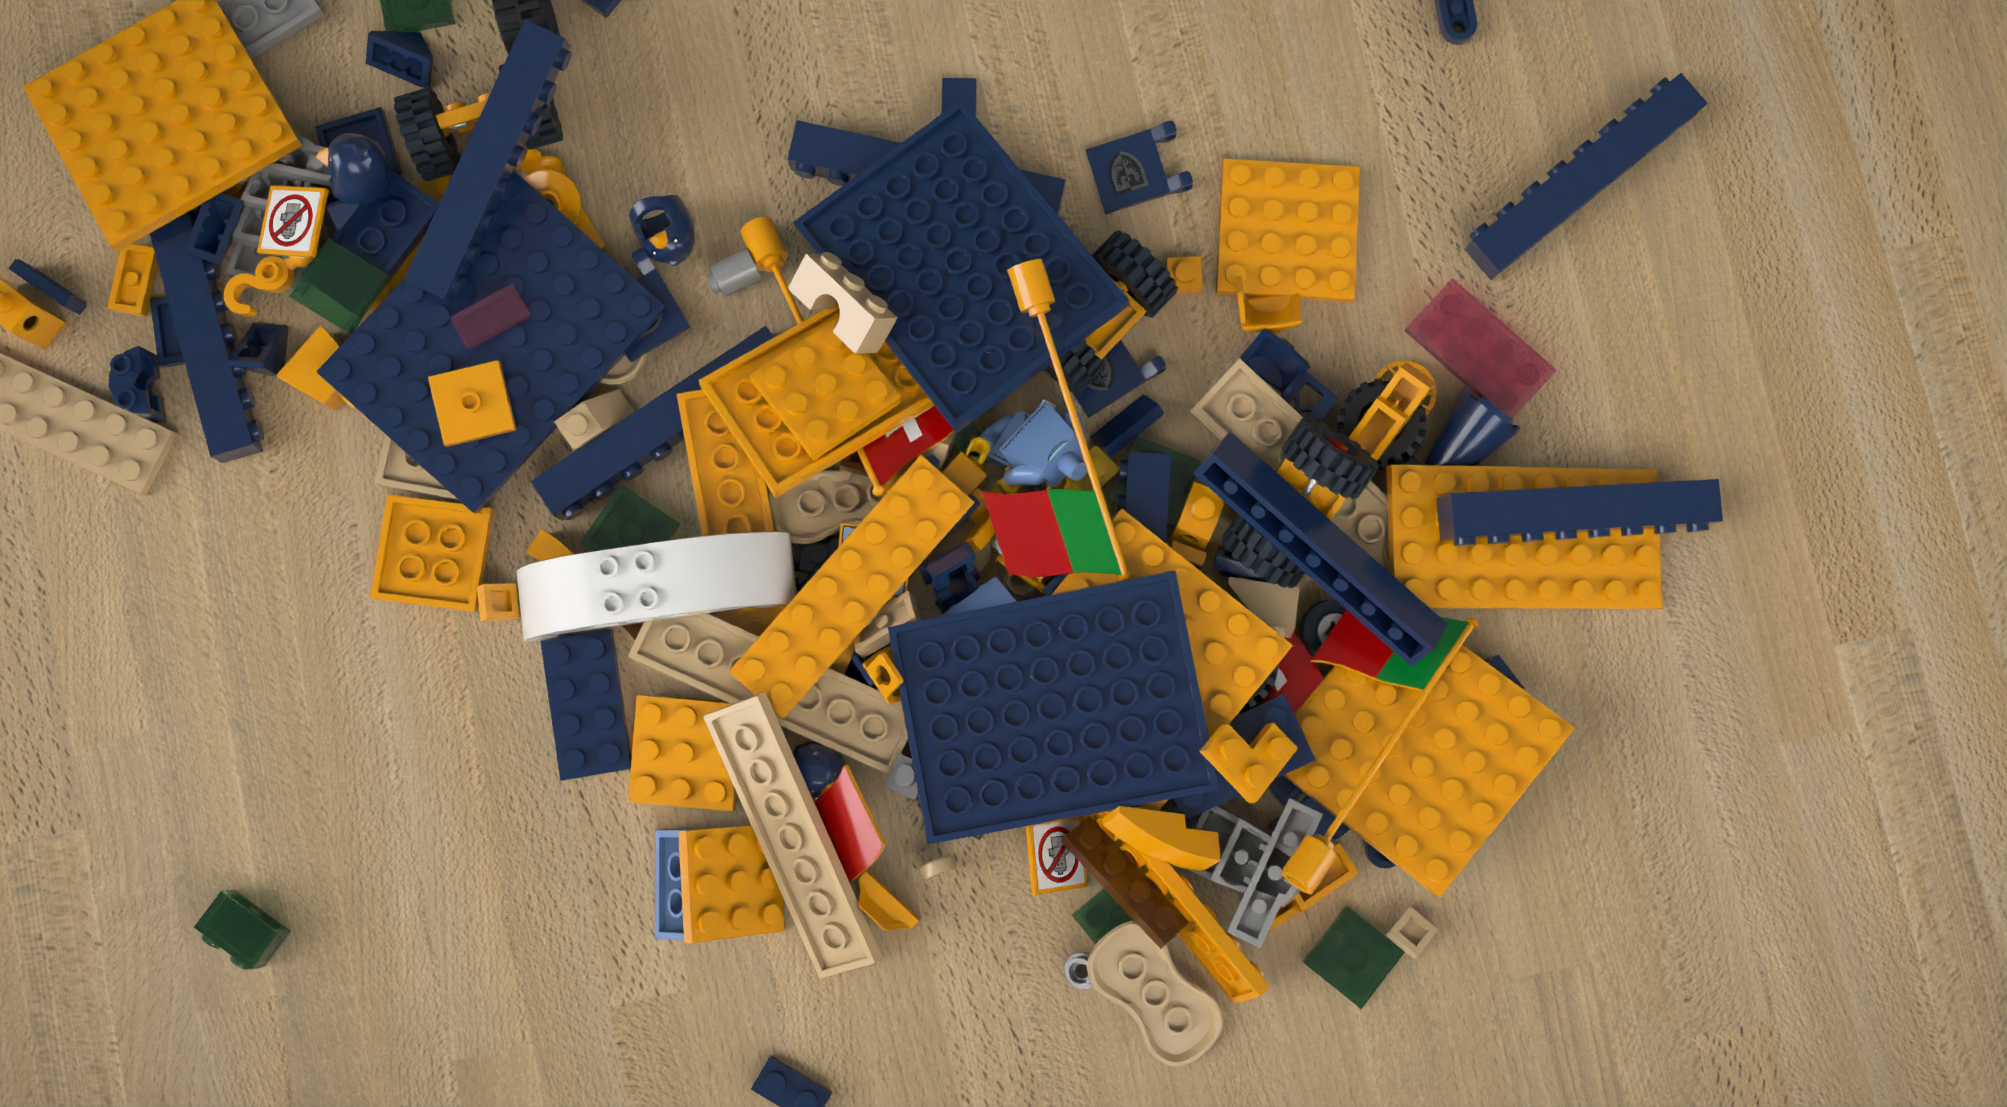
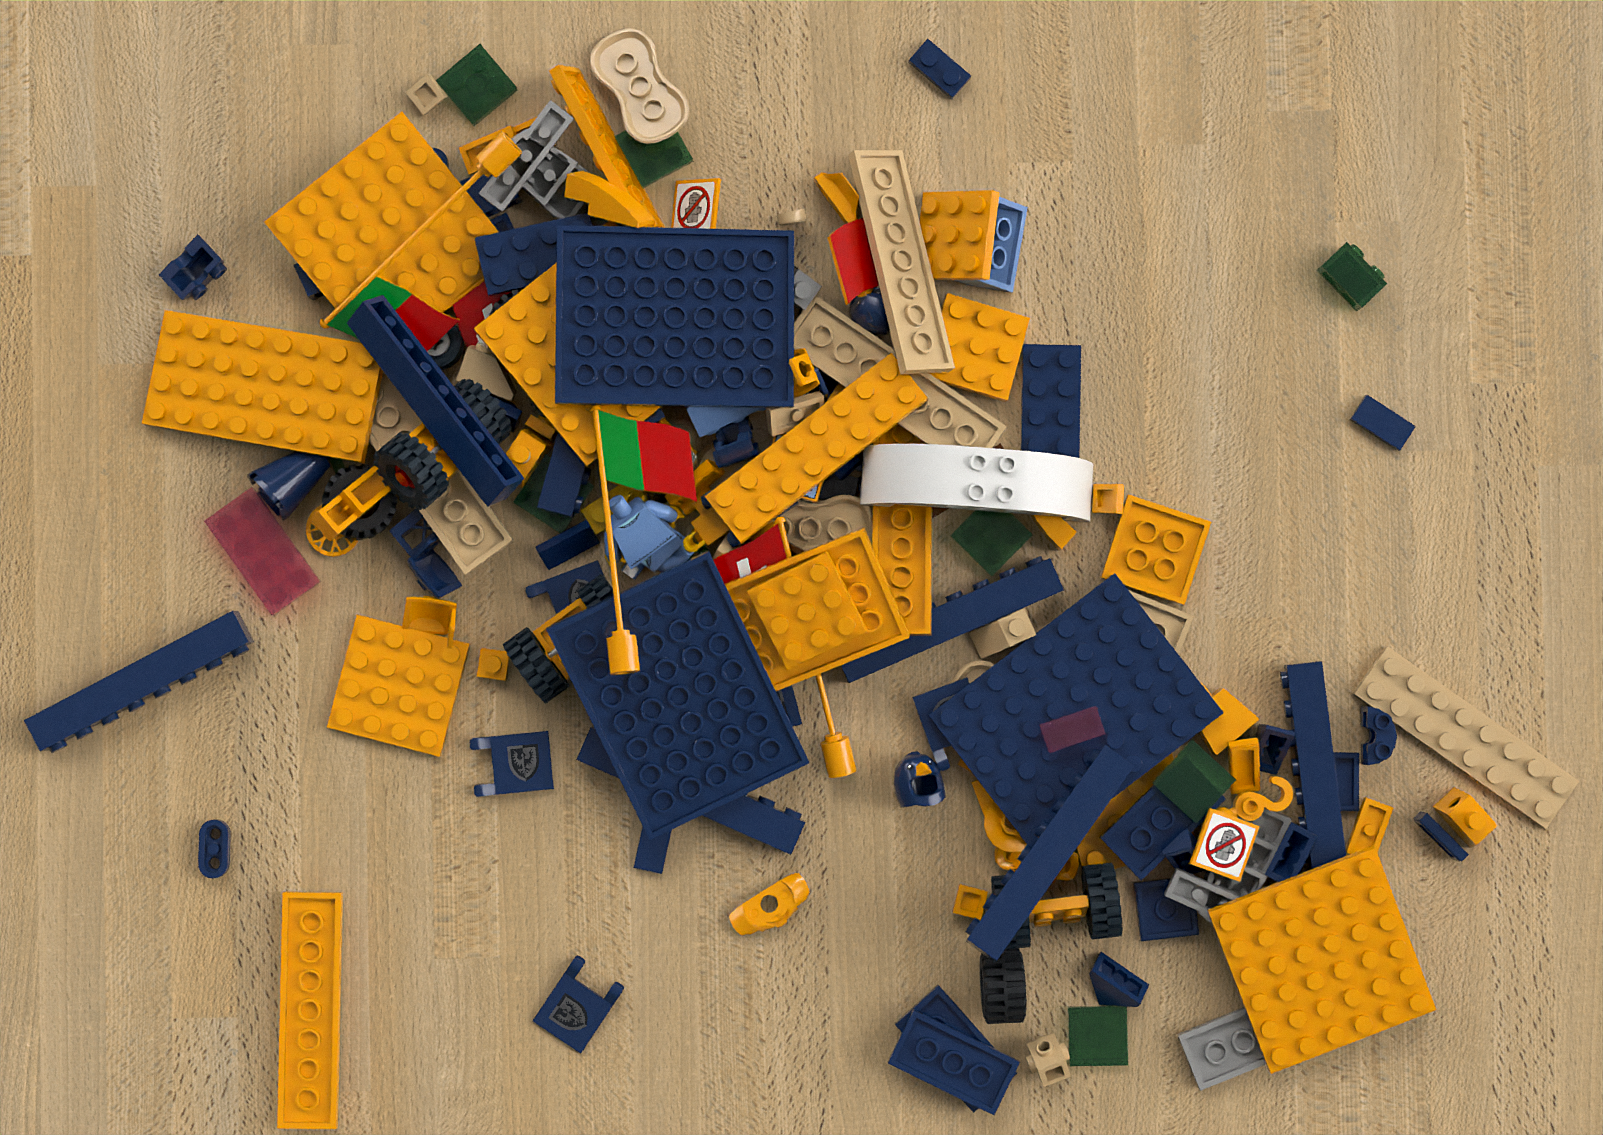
camera: 170 degrees left, 5 degrees up
(182, 758) = (1382, 422): none -> dark blue tile
(287, 323) = (1244, 765): none -> light orange tile
(356, 168) = (1162, 873): dark blue piece -> none
(472, 403) = (1099, 659): light orange plate -> none
(584, 113) = (970, 901): none -> light orange plate
(733, 273) = (868, 736): light grey brick -> none
(794, 84) = (751, 917): none -> light orange piece
(863, 316) = (764, 662): tan arch -> none
(1072, 973) = (701, 113): light grey plate -> none
(1125, 882) = (645, 174): reddish brown plate -> none
(1250, 766) = (530, 239): light orange plate -> none
(1579, 510) = (216, 396): dark blue brick -> none
(1641, 661) = (193, 269): none -> dark blue cylinder

